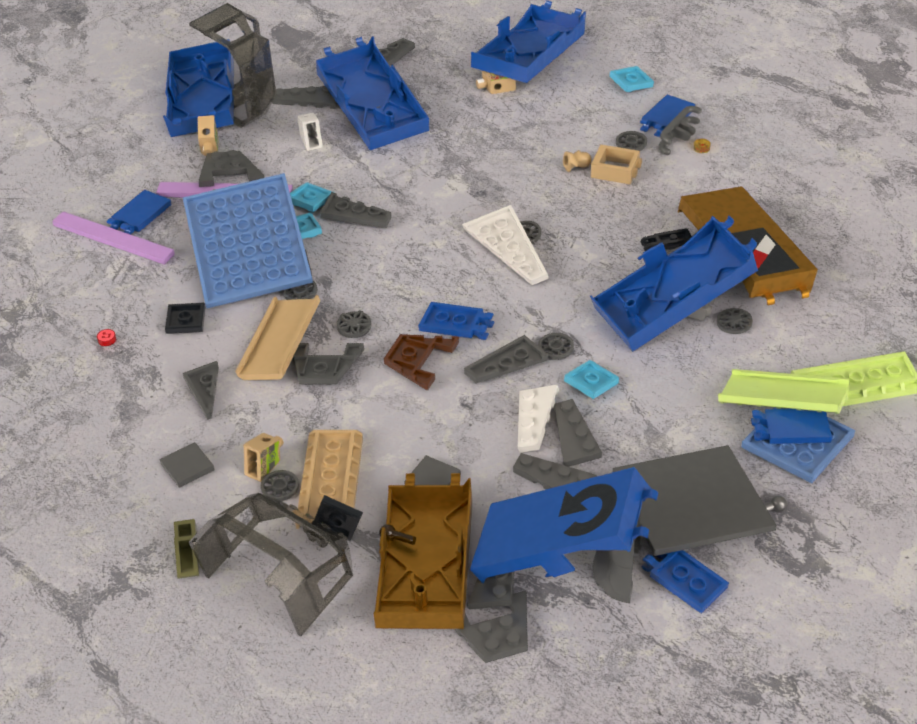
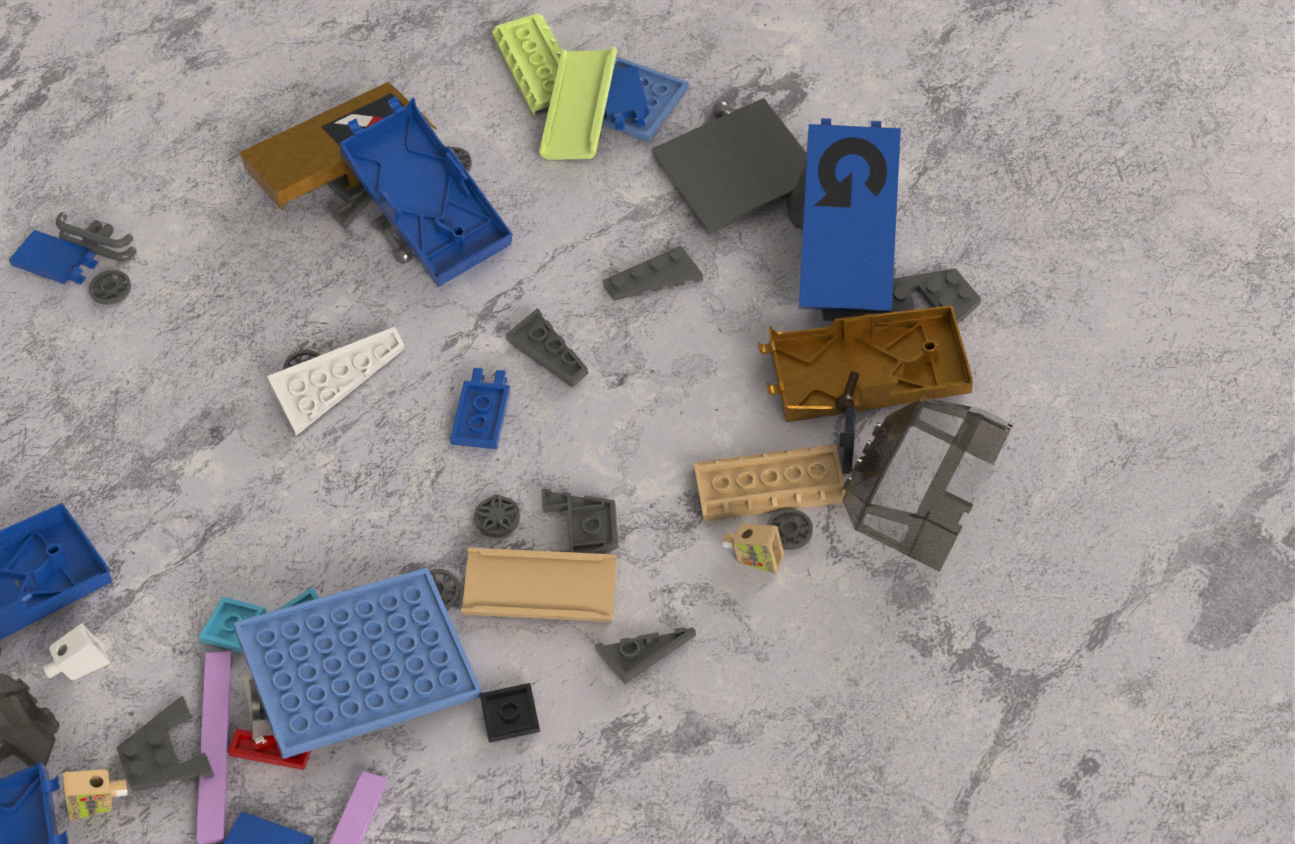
camera: 100 degrees left, 10 degrees up
(106, 337) = (557, 805): tile -> none
(186, 561) = (913, 593): olive slope -> none
(187, 464) = (777, 635): dark grey tile -> none
(347, 211) = (267, 564): dark grey wing -> none
(412, 351) = (551, 442): reddish brown wing -> none
(433, 472) = (745, 386): dark grey tile -> none
(533, 416) = (632, 309): white wing -> none
(547, 472) = (722, 280): dark grey wing -> none
(557, 345) = (513, 308): dark grey wheel -> none
(576, 159) = (157, 333): tan animal -> none
(591, 379) = (568, 268): medium azure plate -> none
(614, 173) = (172, 310): tan window -> none
(670, 239) = (316, 228): black hinge -> none
(701, 145) = (121, 218): clear yellow tile -> none

